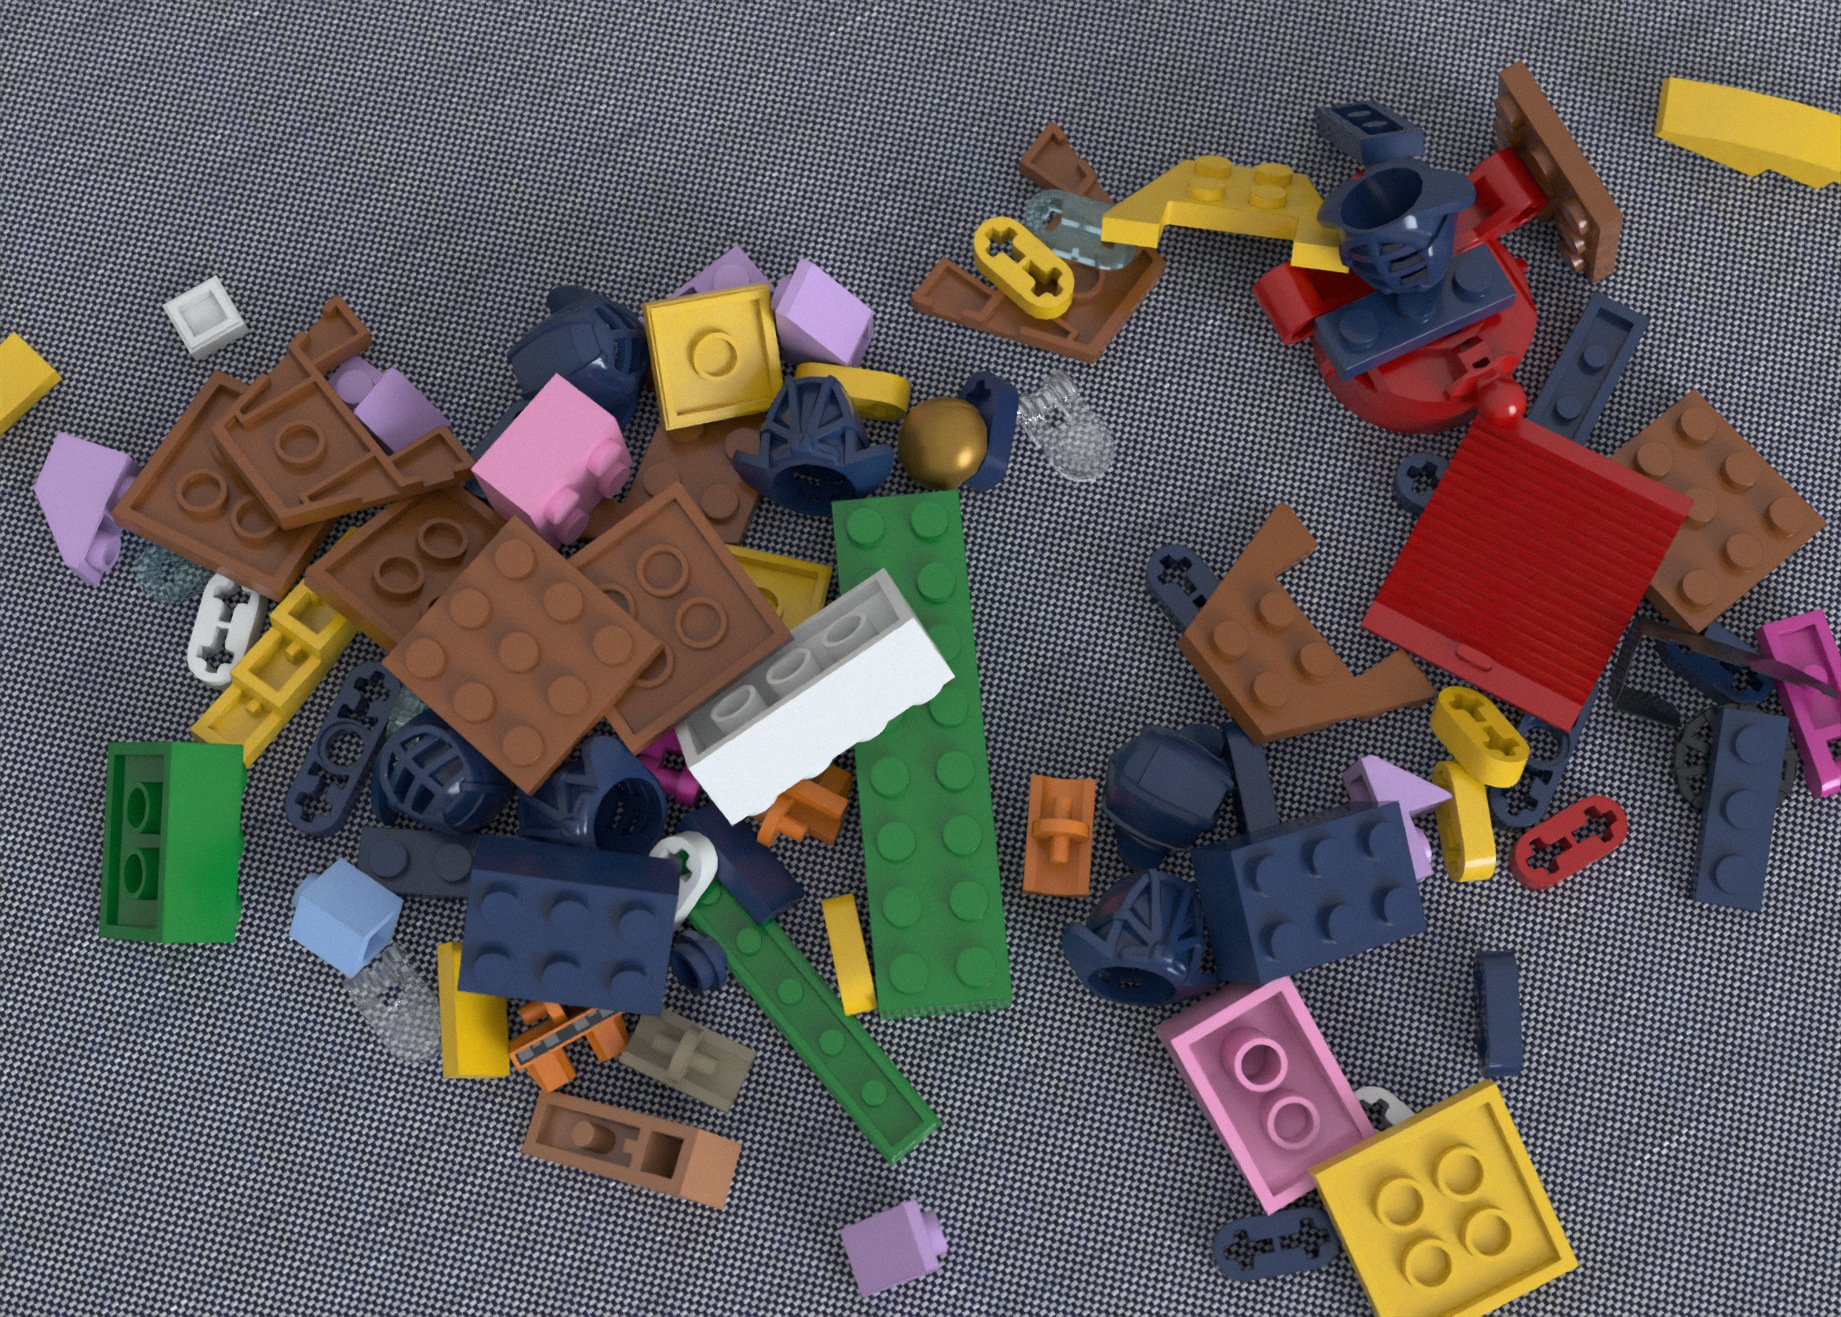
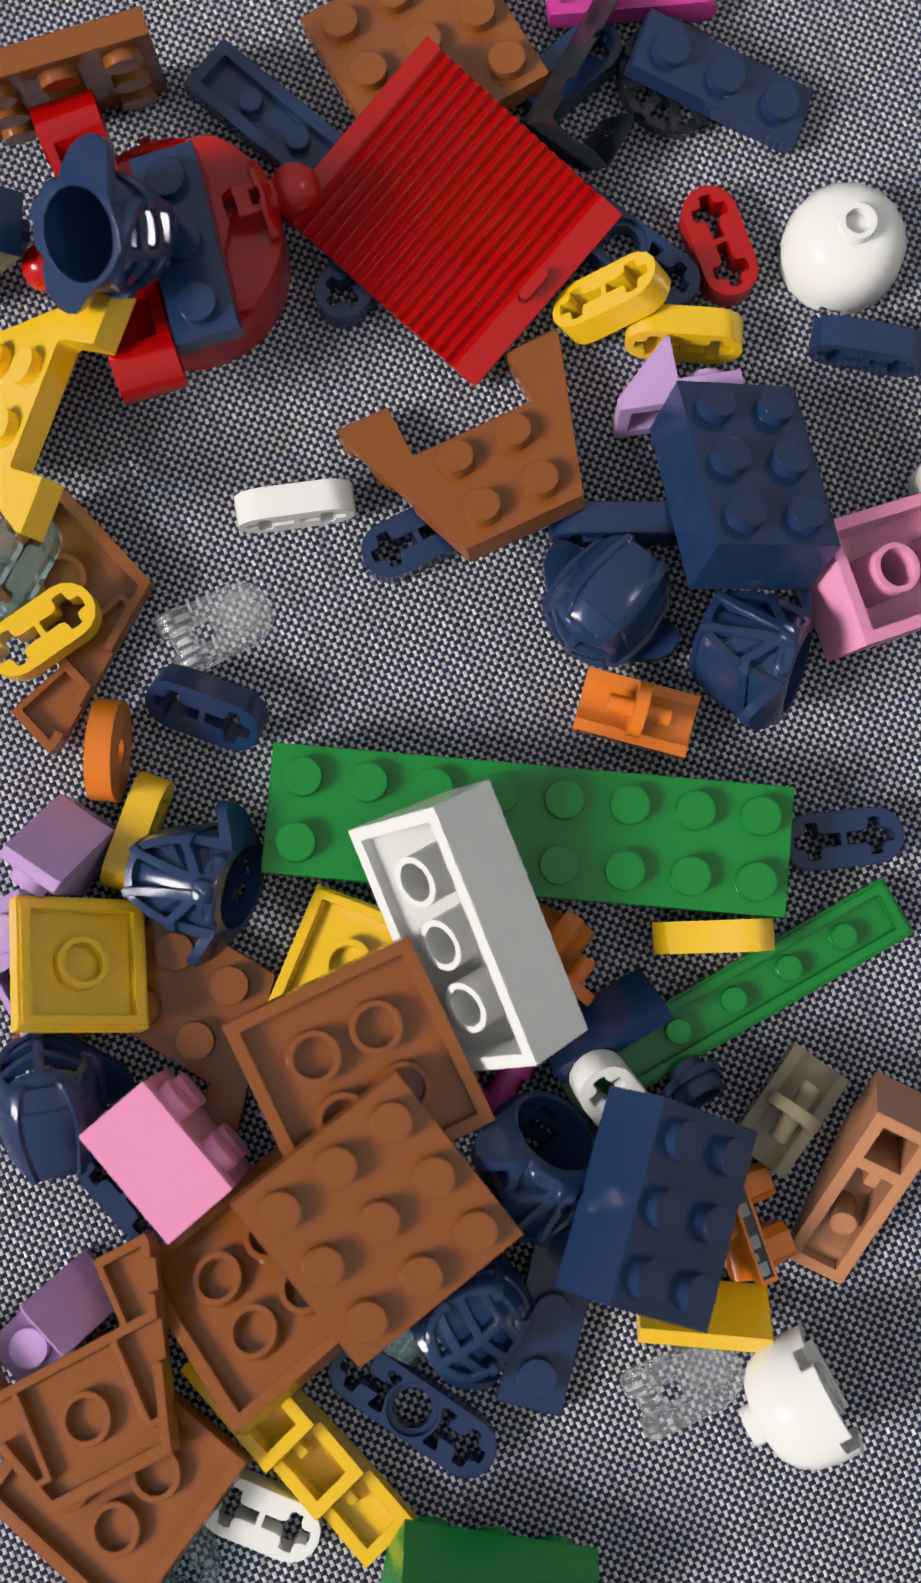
camera: 85 degrees left, 10 degrees up
(344, 916) = (590, 1433): light blue brick -> none
(400, 1115) = (797, 1404): none -> white cylinder
(923, 346) = (107, 750): none -> orange piece
(942, 442) = (215, 749): pearl gold hair -> none
(989, 1070) = (844, 854): none -> dark blue beam
(1199, 475) = (294, 505): none -> white beam
(1597, 971) = (842, 248): none -> white cylinder

